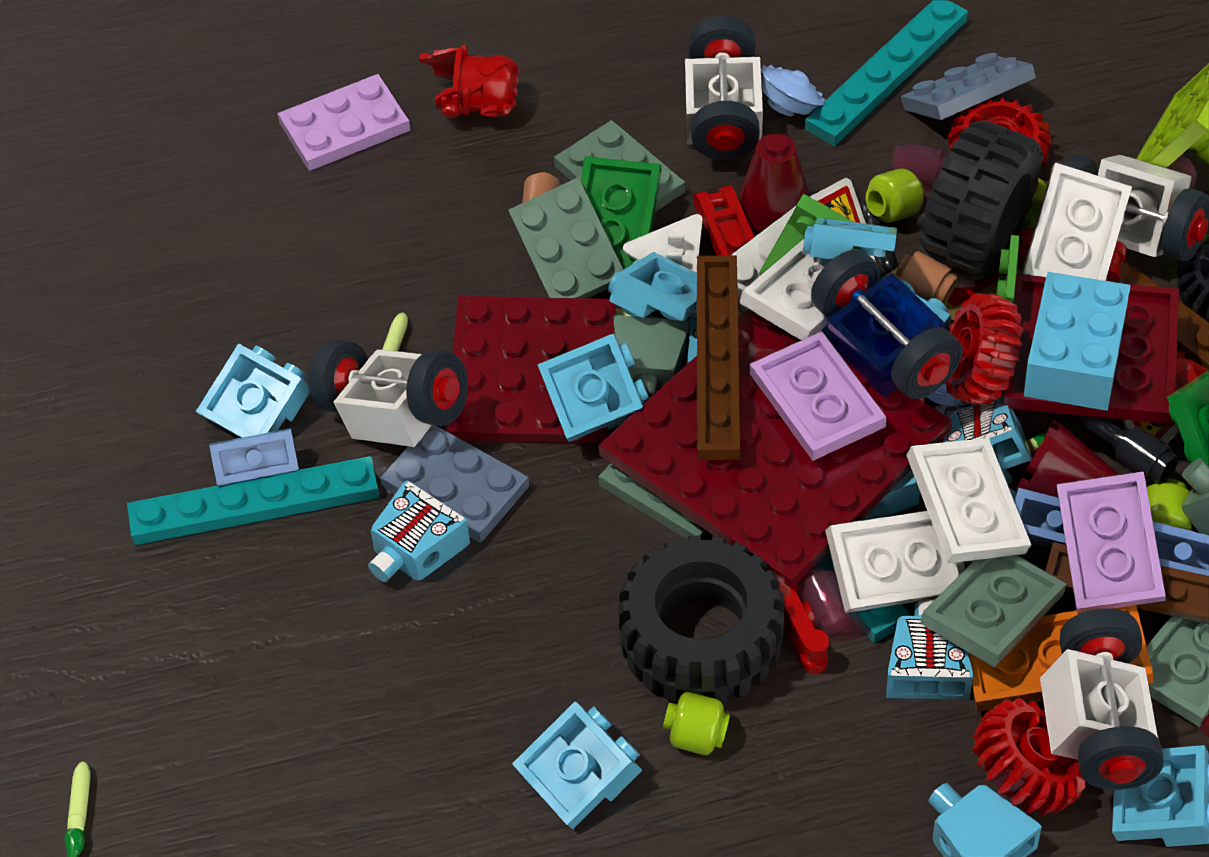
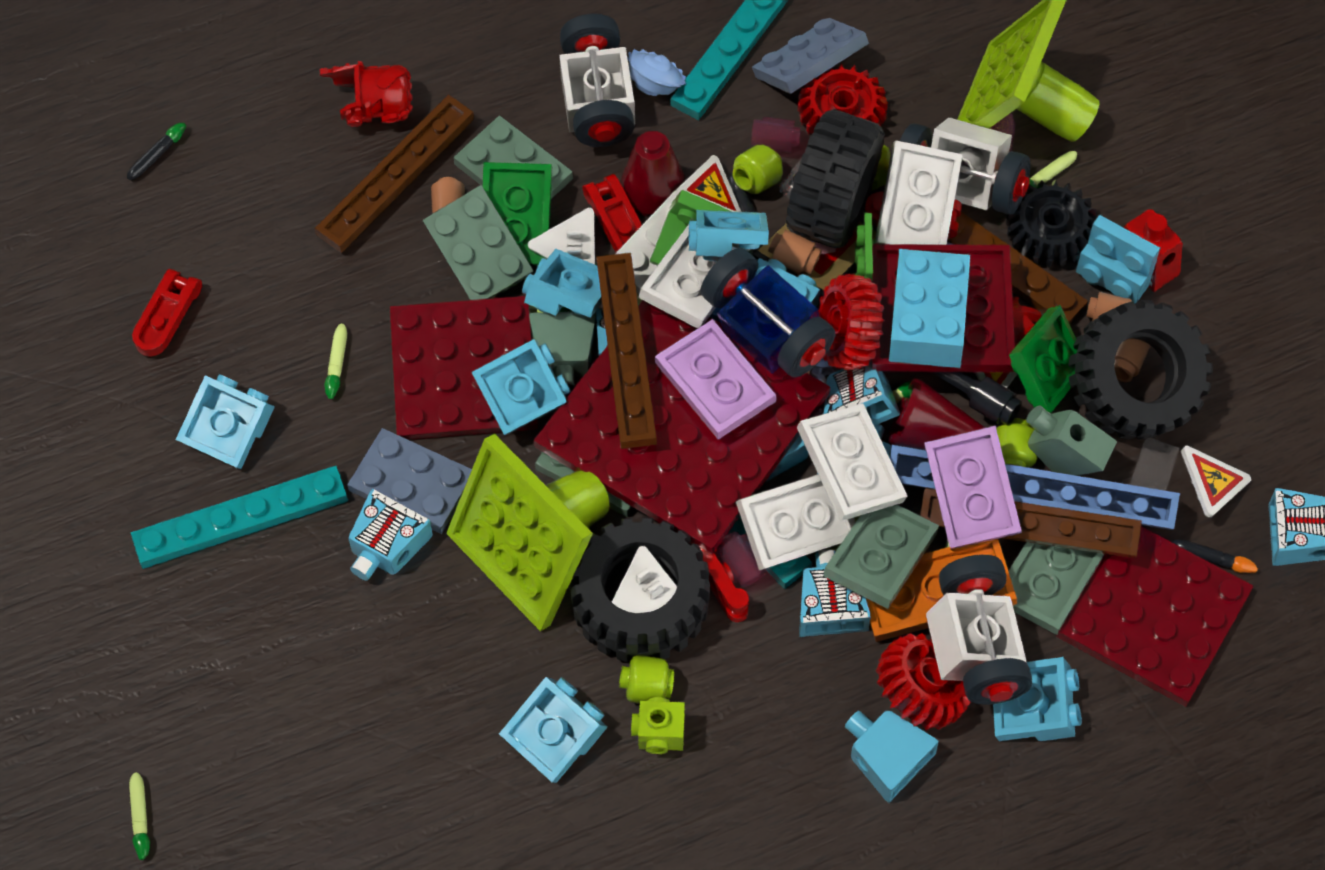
camera: 10 degrees left, 10 degrees up
(209, 282) = (165, 312): none -> red plate
(231, 124) = (172, 136): none -> black piece
(253, 456) = (234, 478): medium blue plate -> none
(343, 122) = (258, 138): lavender plate -> none
(391, 393) = (345, 408): brick -> none
(485, 167) = (394, 173): none -> reddish brown plate
(573, 534) = (526, 531): none -> lime piece
(704, 774) = (659, 725): none -> lime brick
(705, 609) = (644, 585): none -> white piece

